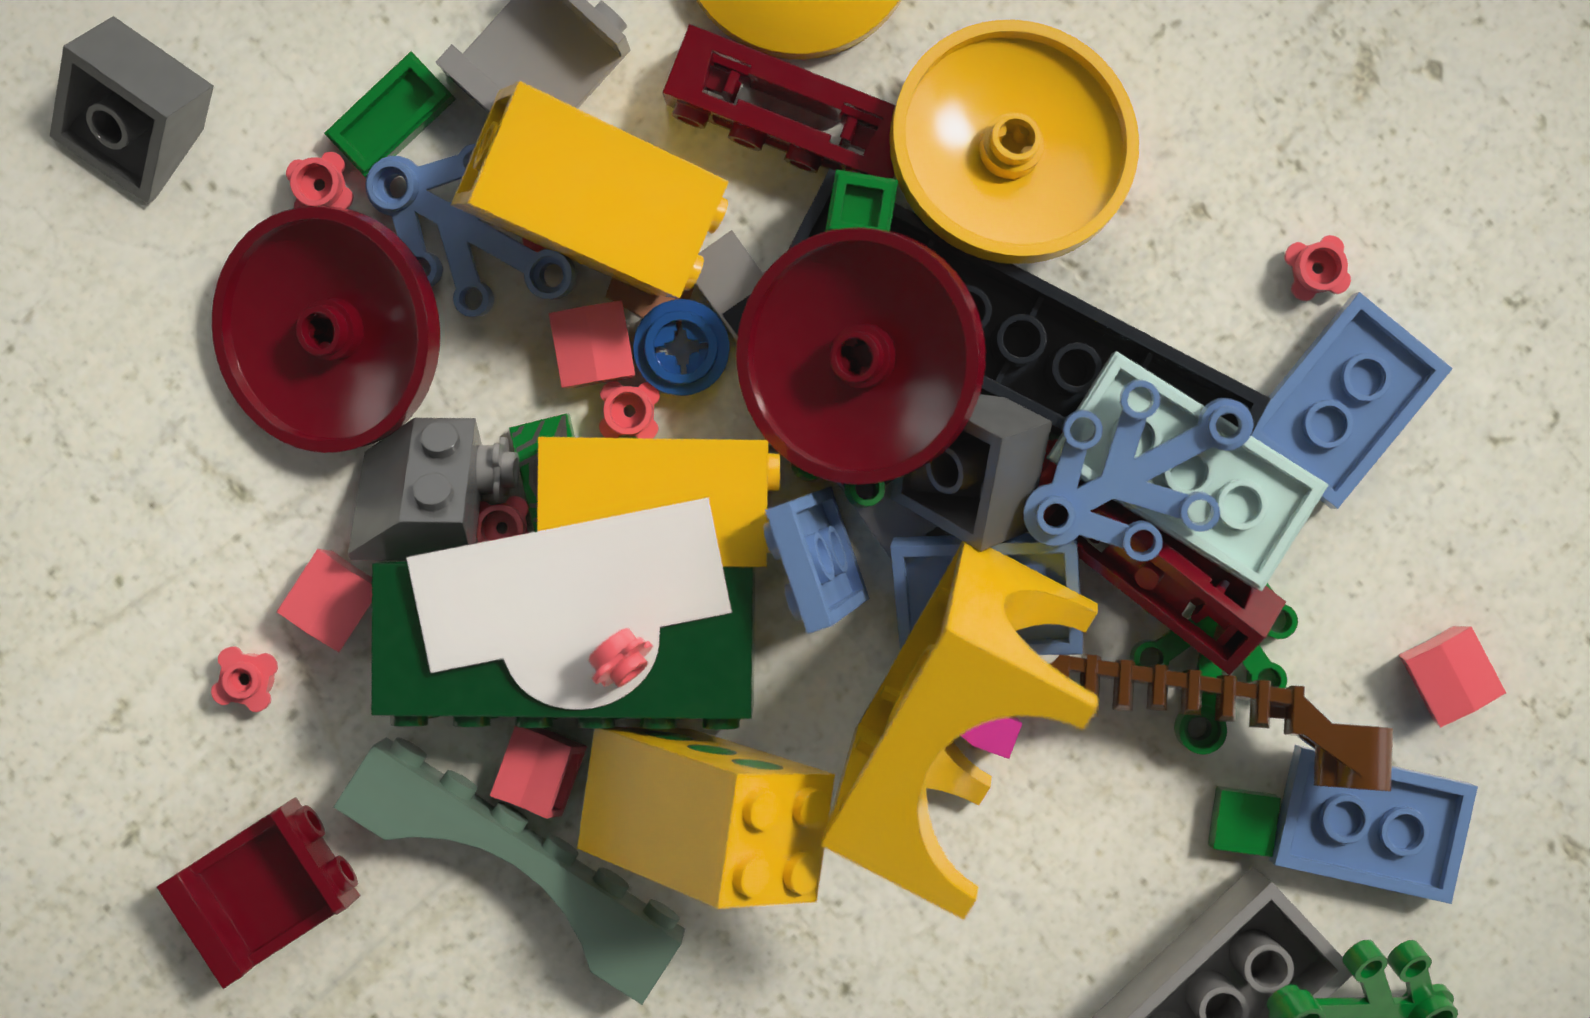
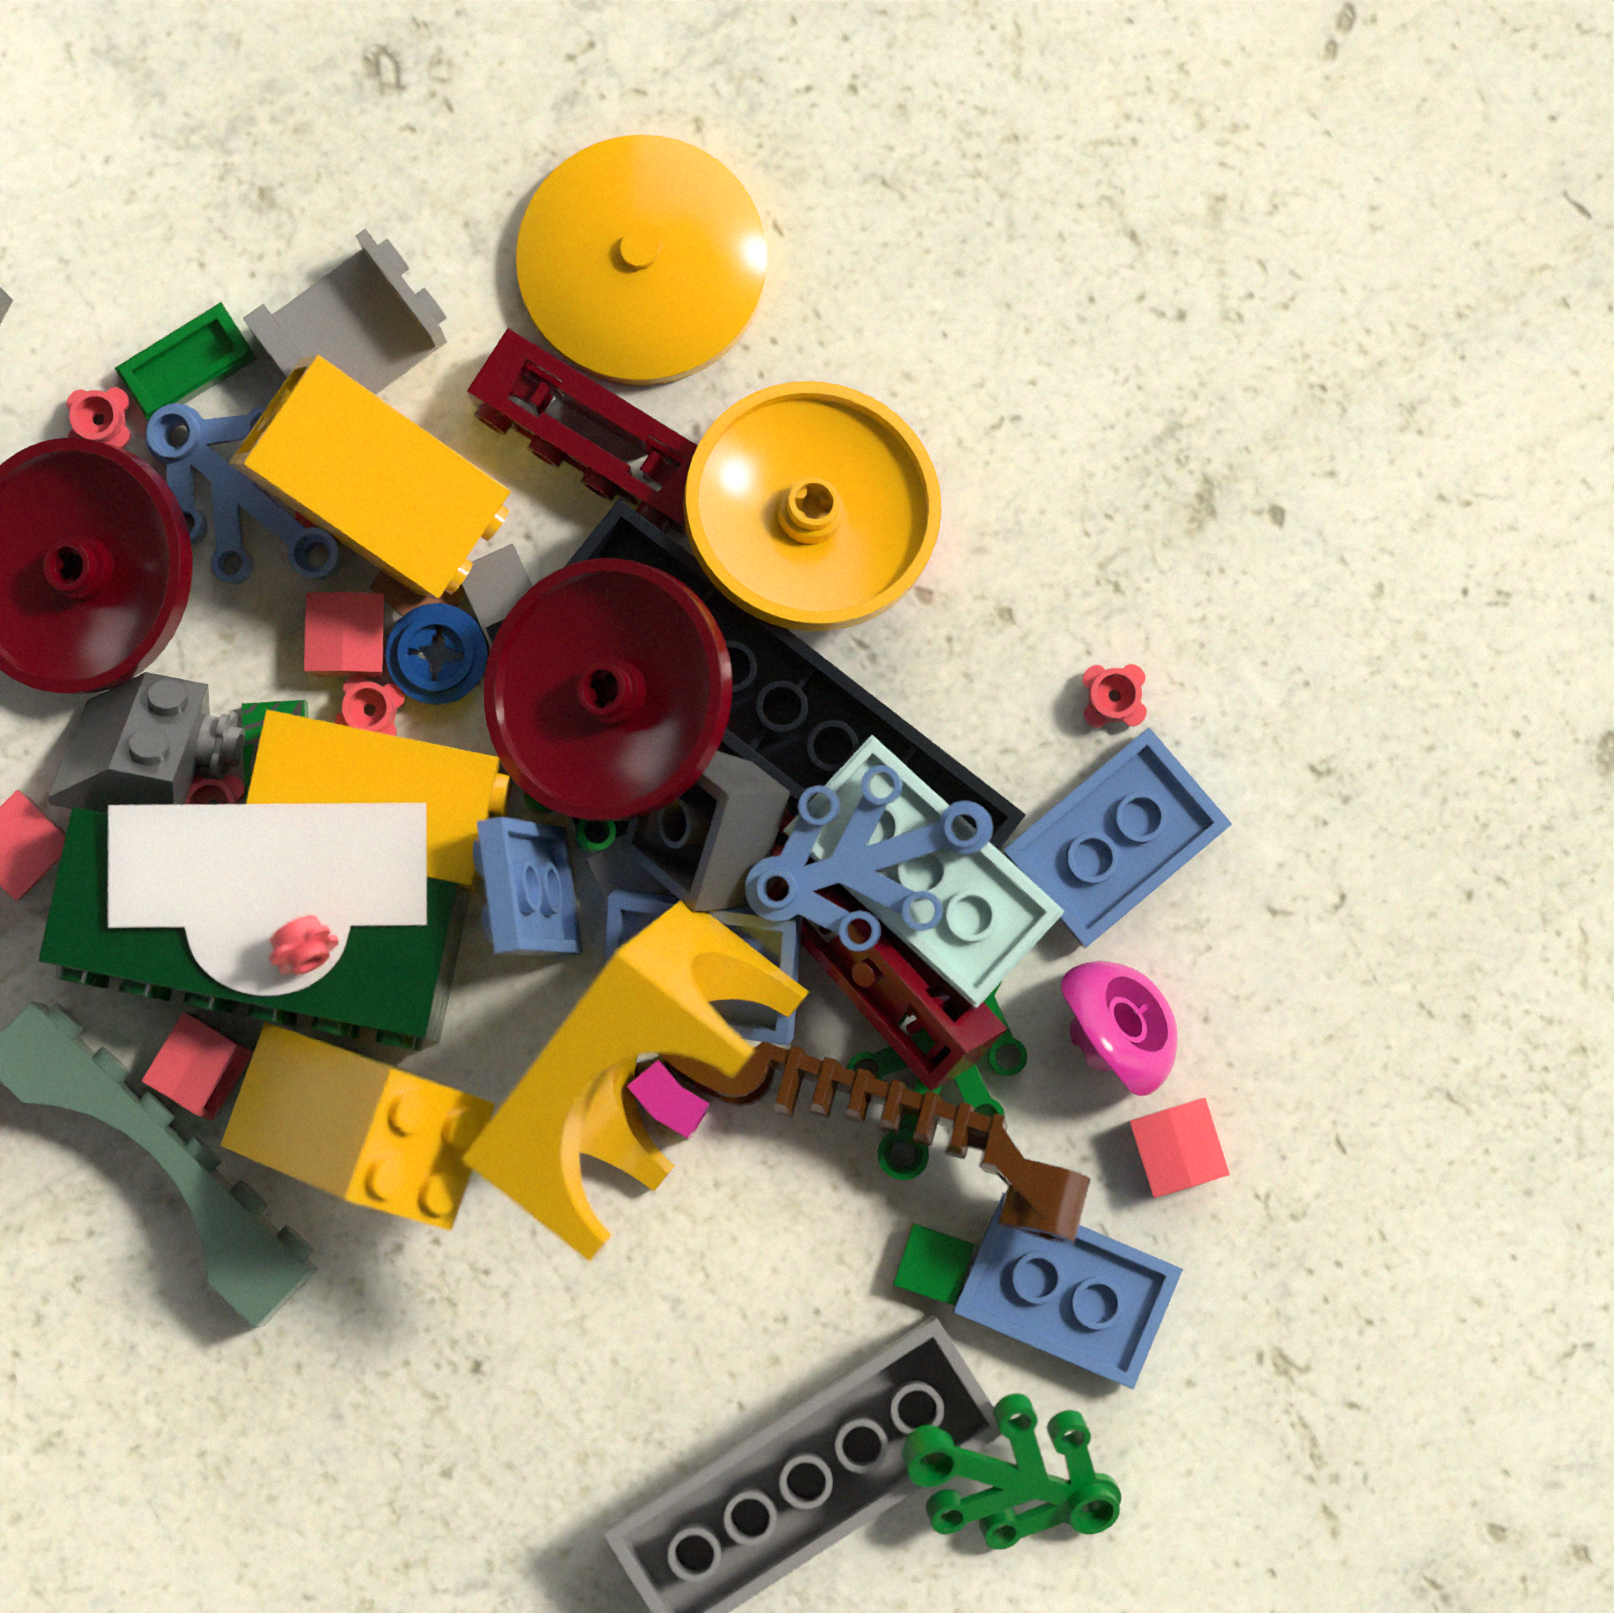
camera: 15 degrees right, 5 degrees down
(861, 201) = (643, 536): green tile -> none
(1382, 573) = (1121, 1023): none -> dark pink hat

